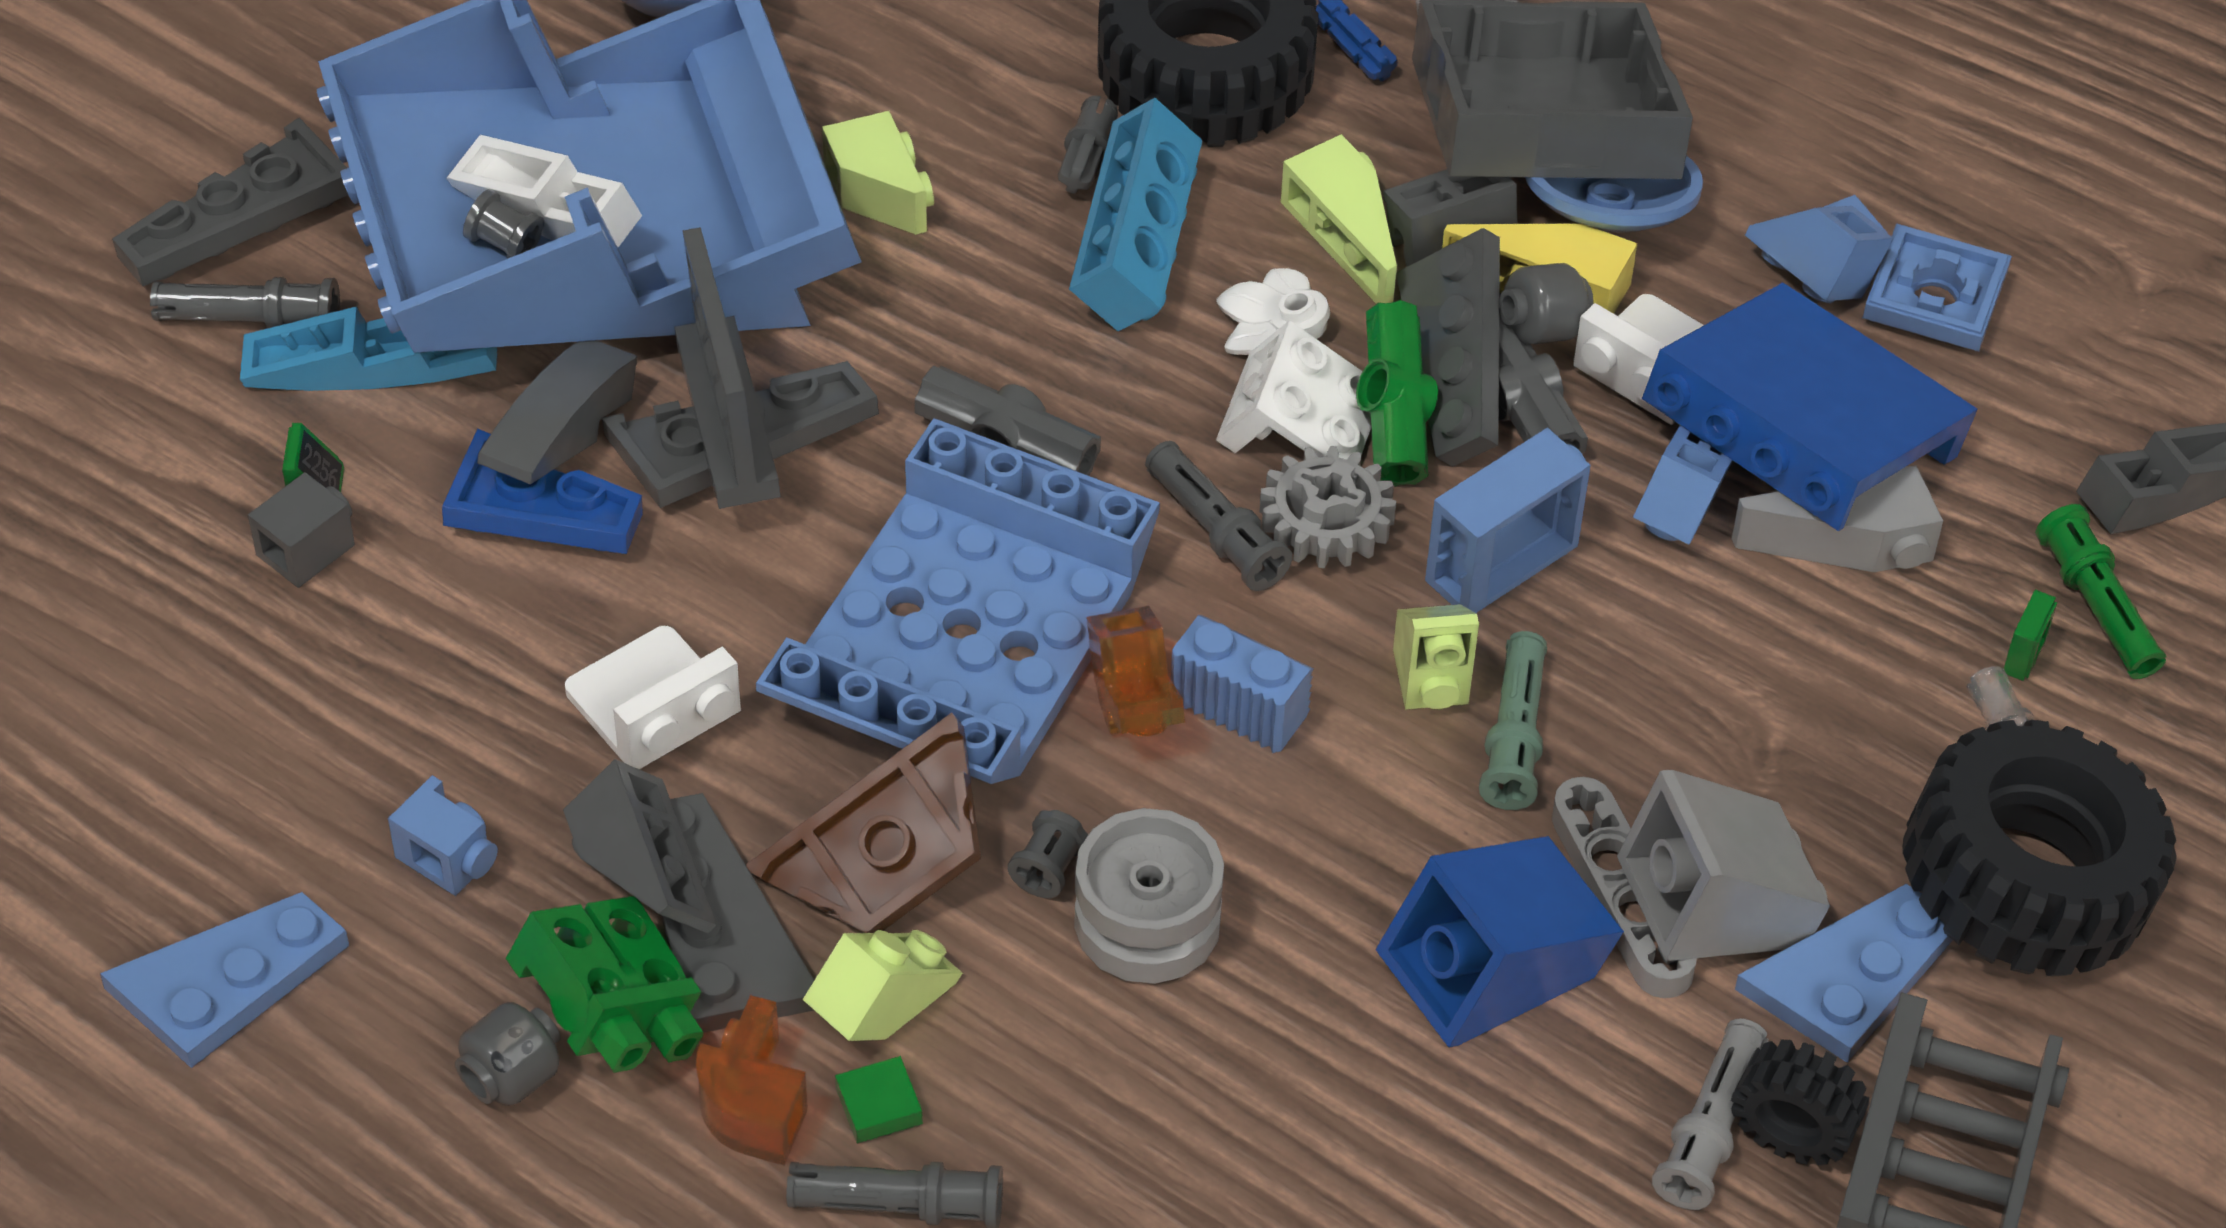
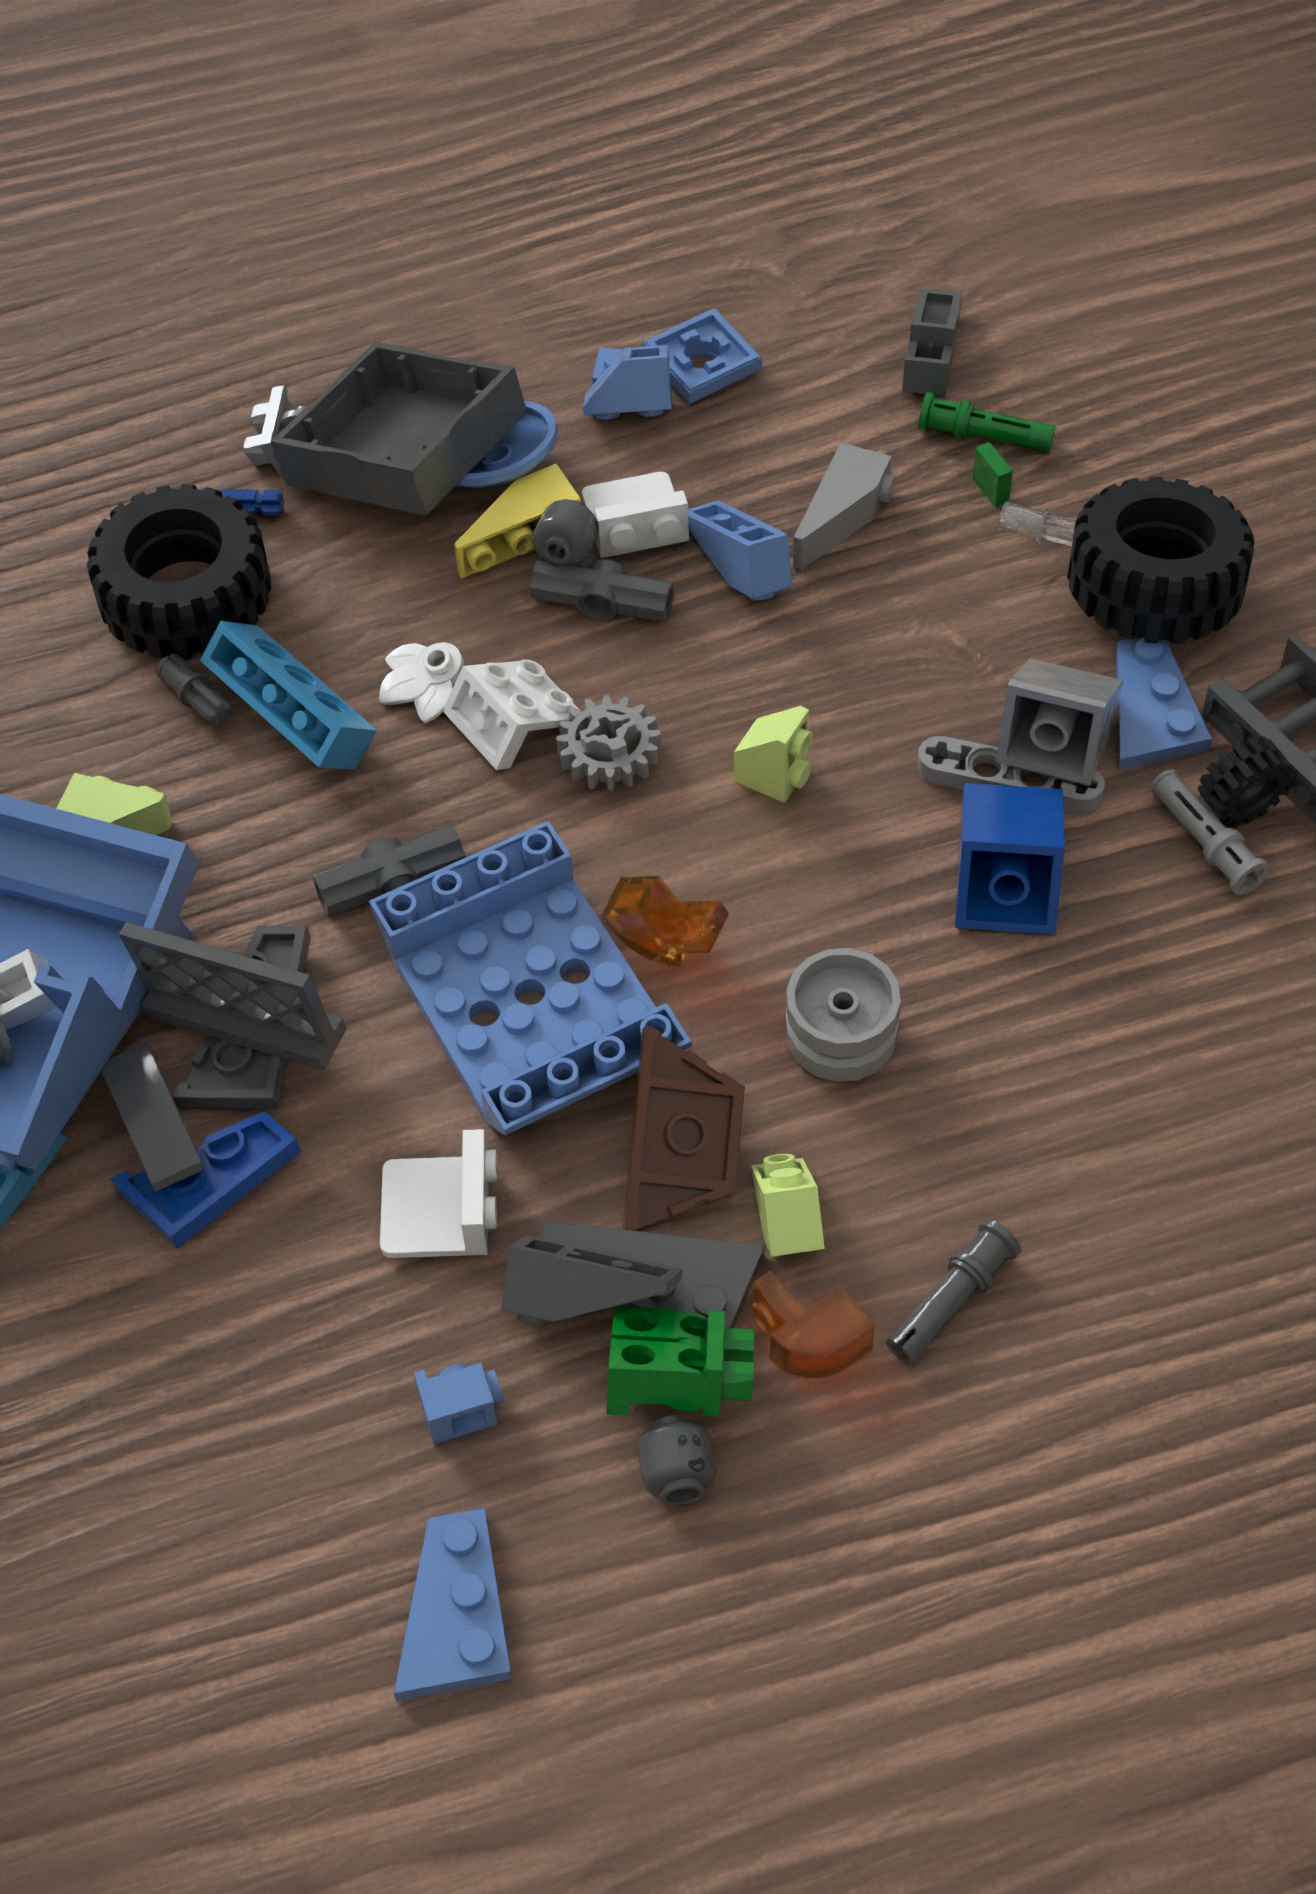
camera: 50 degrees left, 5 degrees up
(302, 529) = (105, 1338): dark grey brick -> none
(310, 455) = (53, 1307): slope -> none
(878, 1099) = (868, 1263): green tile -> none
(1025, 863) = (755, 1052): dark grey bush -> none
(1232, 530) = (584, 803): dark grey pin -> none
(1241, 683) = (714, 865): medium blue brick -> none
(1341, 205) = (382, 590): yellowish green slope -> none
(1397, 392) = (535, 637): green piece -> none
(1425, 206) = (429, 543): dark grey hinge -> none
(1460, 341) = (538, 595): dark grey wing -> none
(1507, 521) = (714, 657): medium blue window -> none
(1514, 741) = (866, 760): sand green pin -> none
(1805, 401) = (754, 461): blue panel -> none

